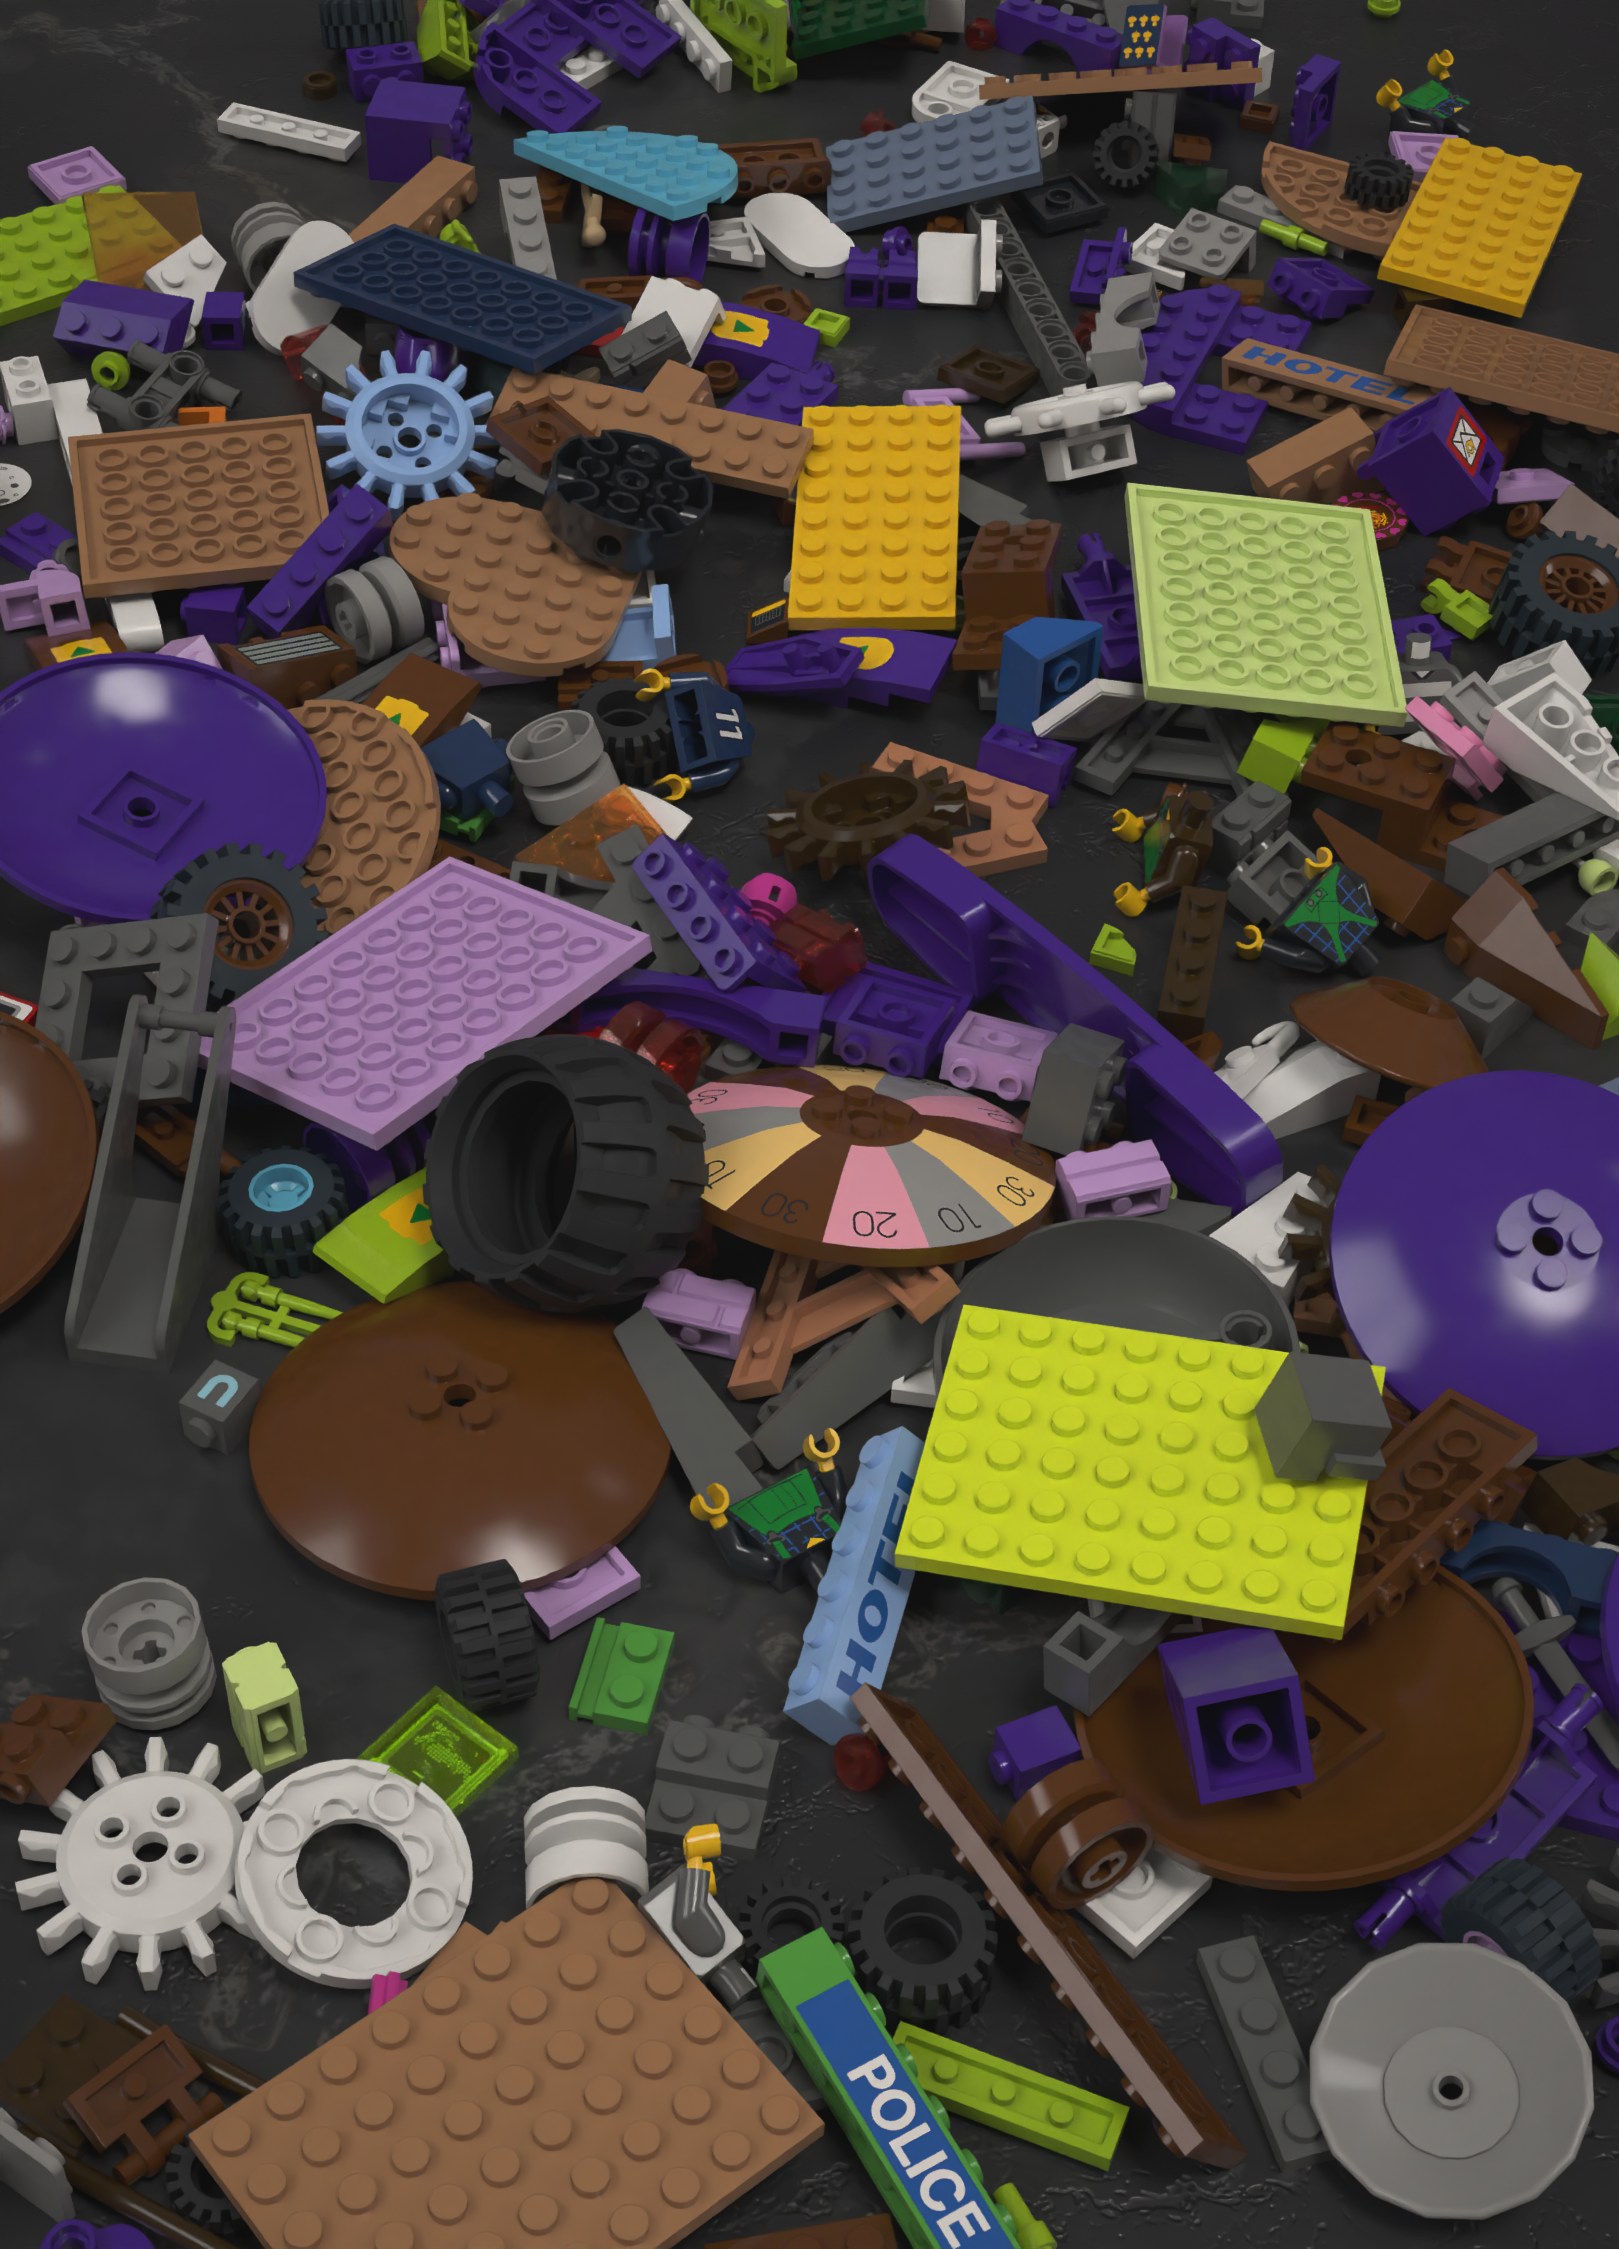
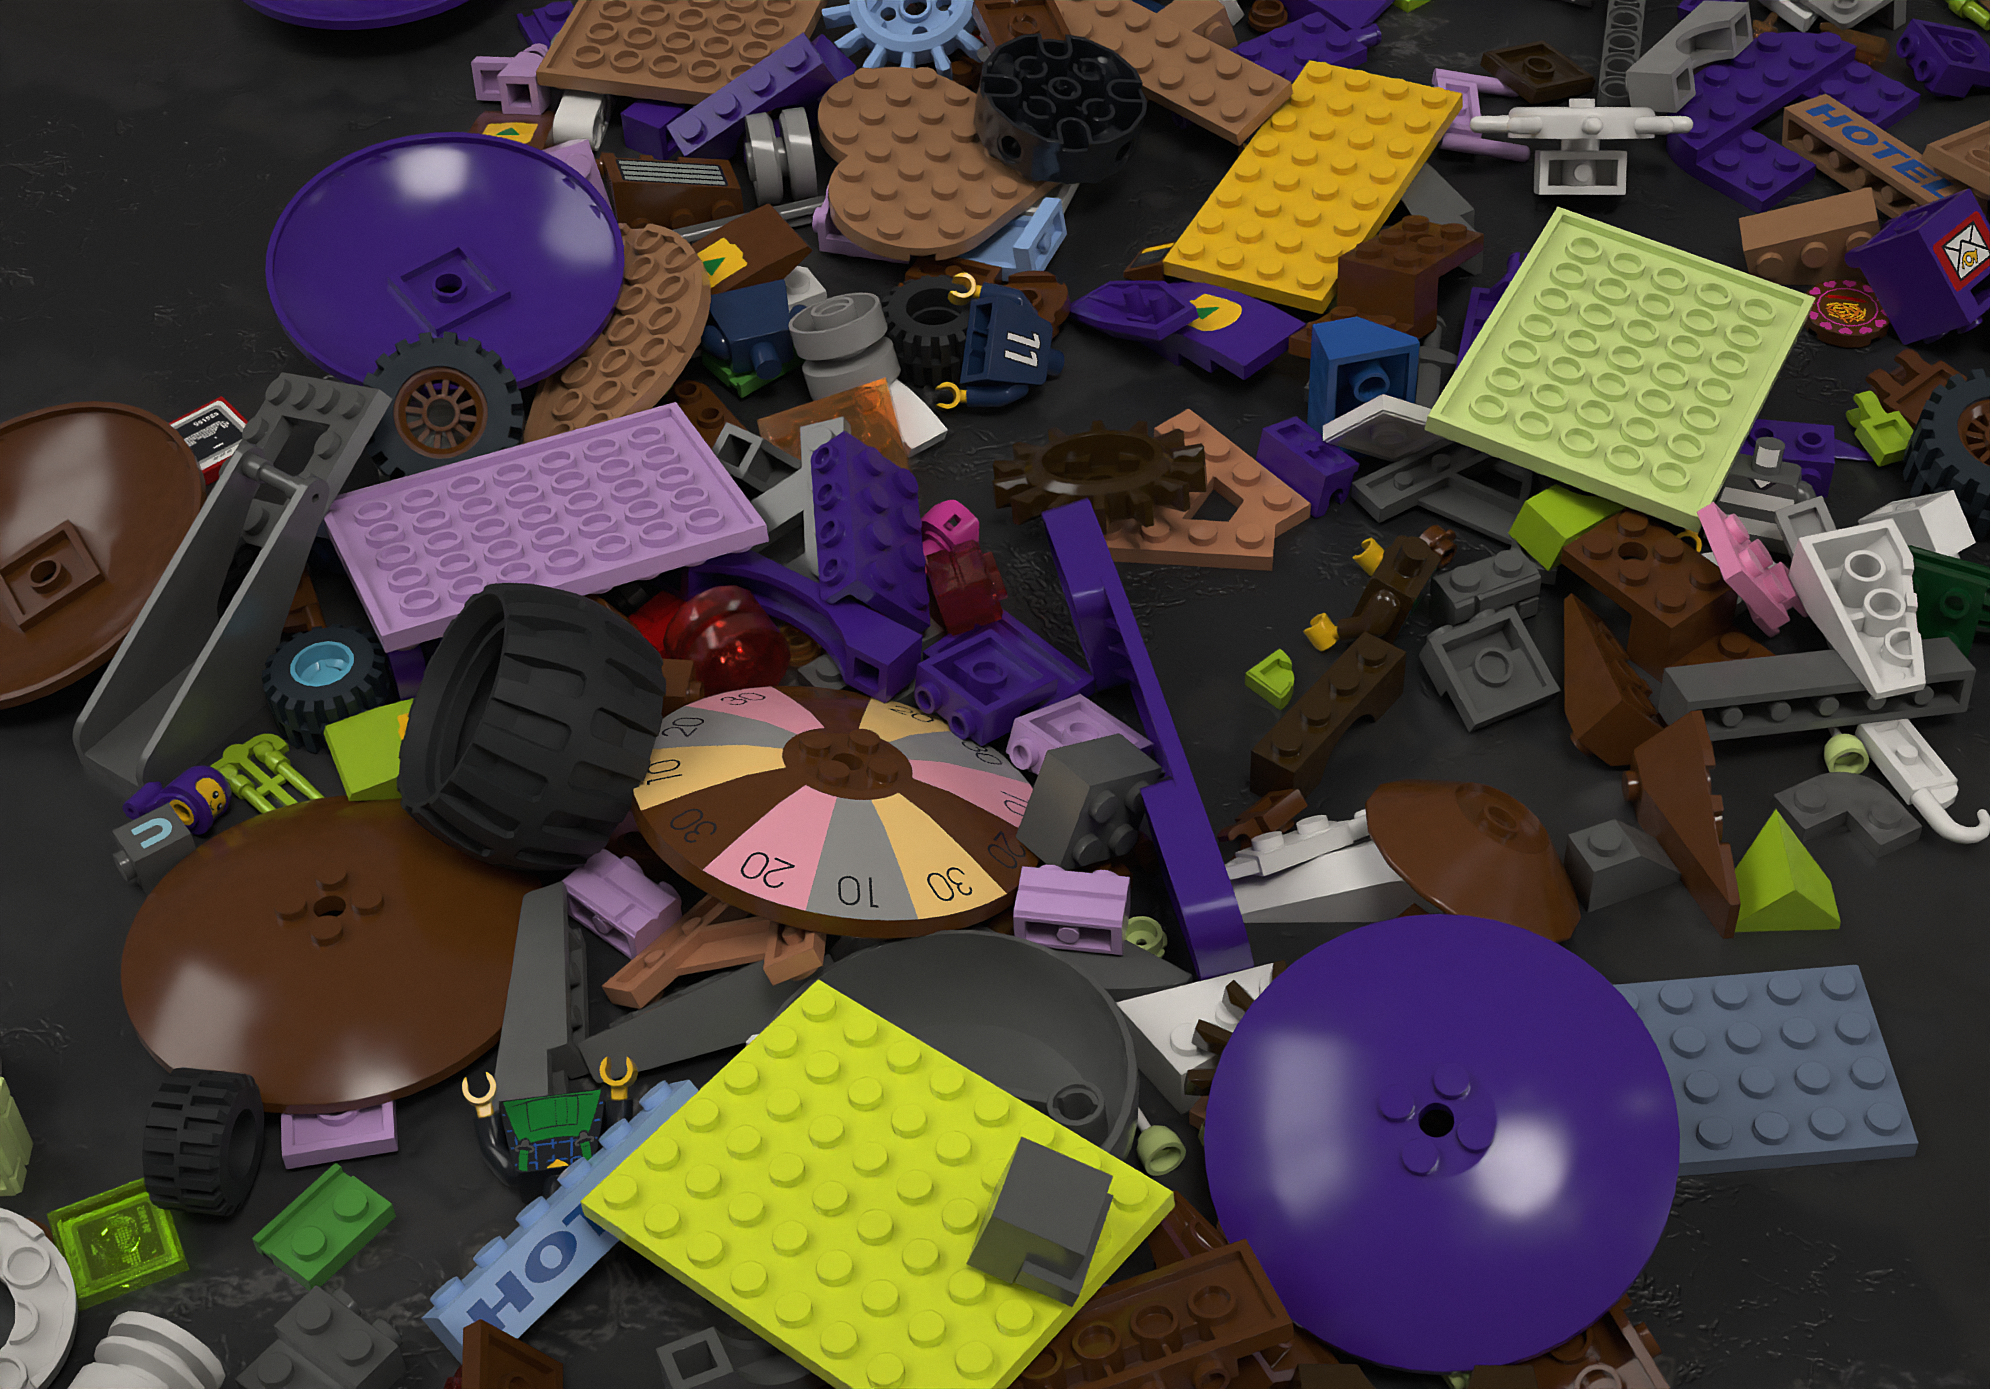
camera: 30 degrees right, 0 degrees up
(222, 1339) = (195, 795): none -> dark purple piece
(1322, 923) = (1492, 714): black torso -> none

